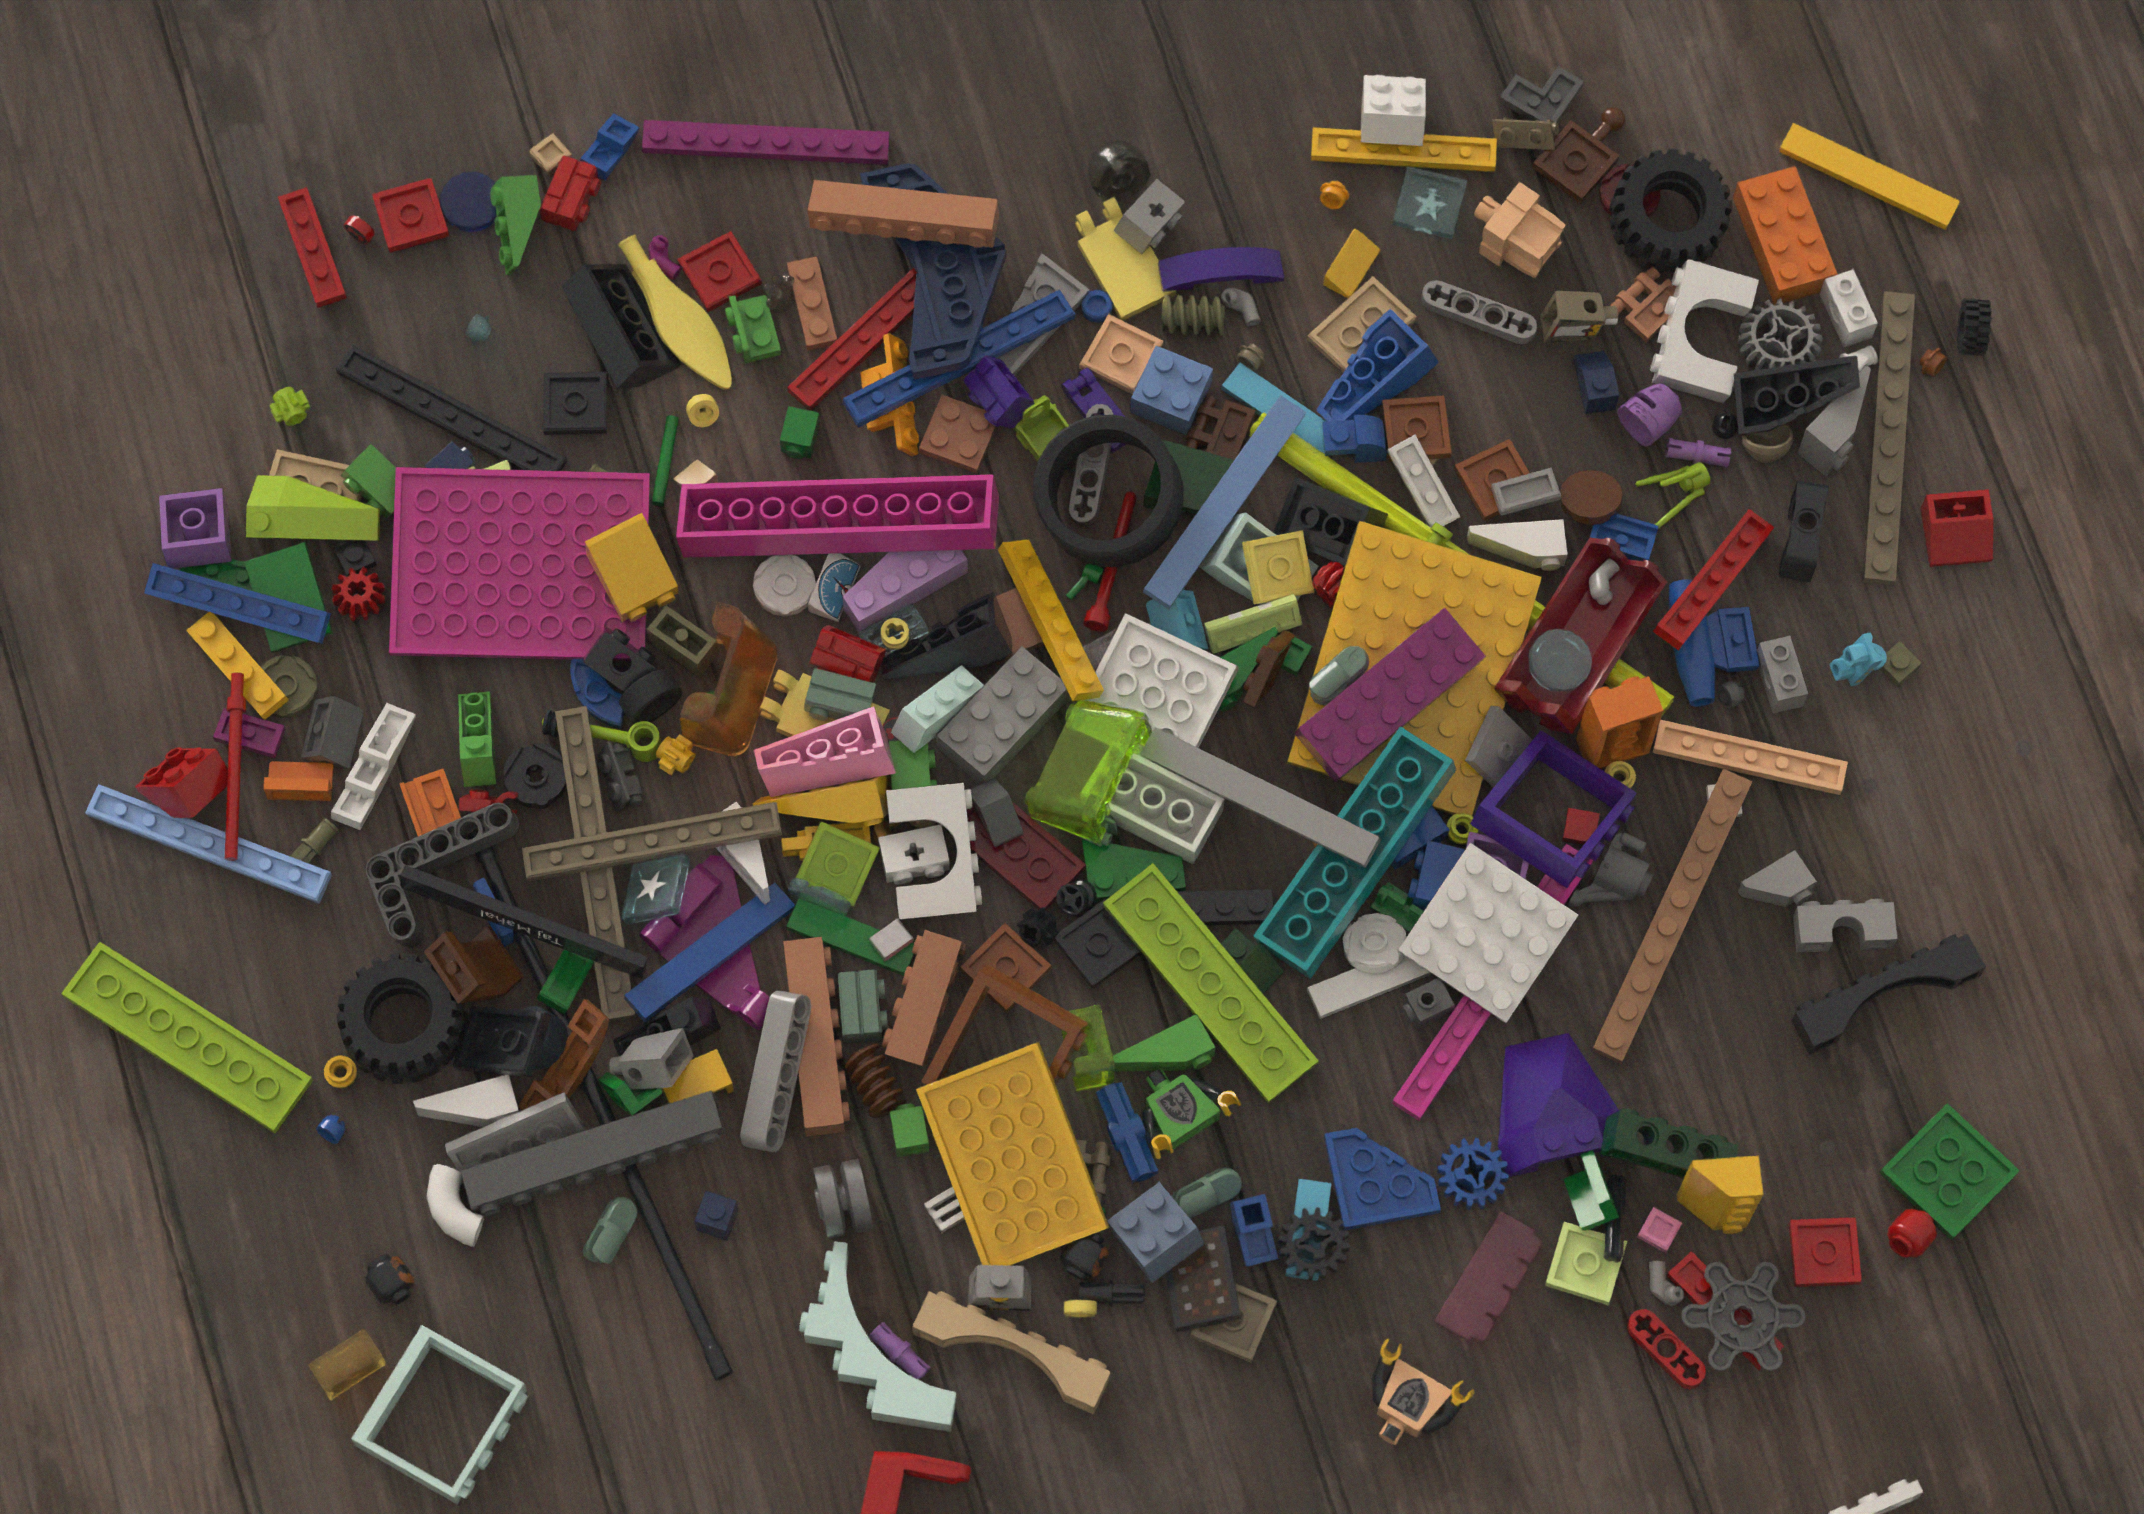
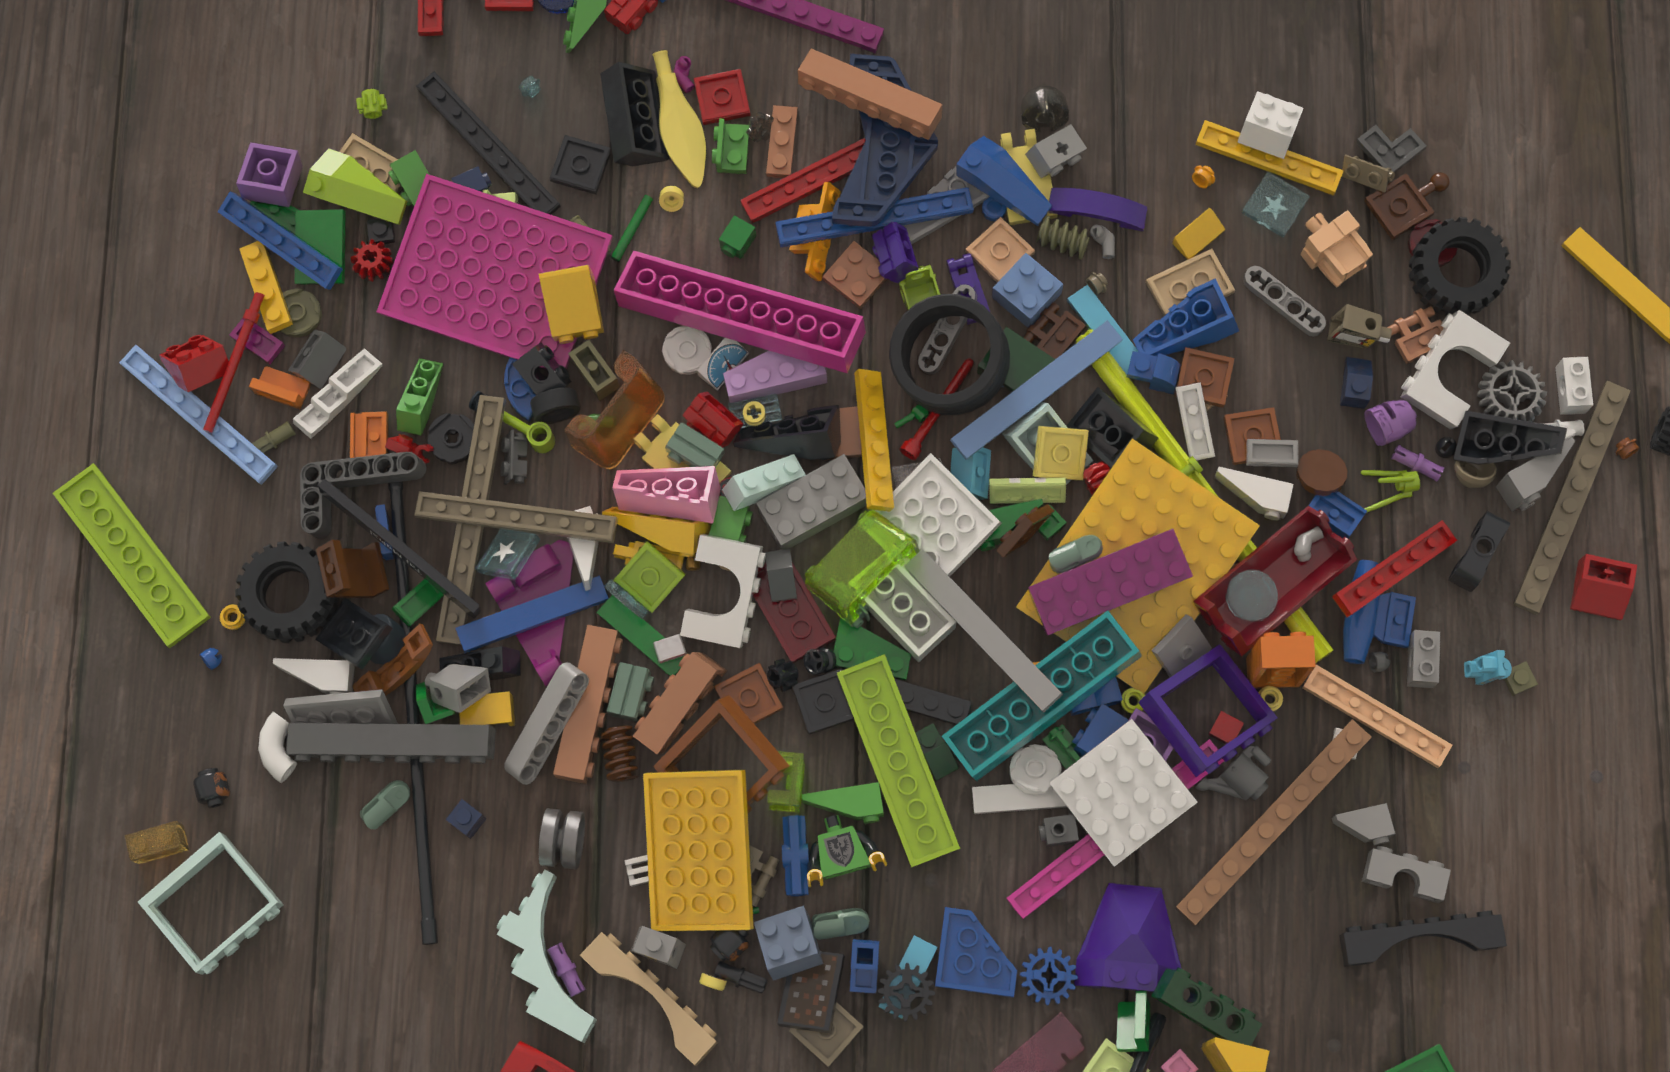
camera: 25 degrees right, 5 degrees up
(675, 754) = (559, 455): yellow gear -> none
(696, 474) = (650, 246): tan slope -> none
(909, 1130) = (631, 800): bright green brick -> none
(926, 843) = (699, 580): white brick -> none
(1091, 266) = (1000, 177): none -> blue wedge
(1784, 234) = (1543, 312): orange brick -> none

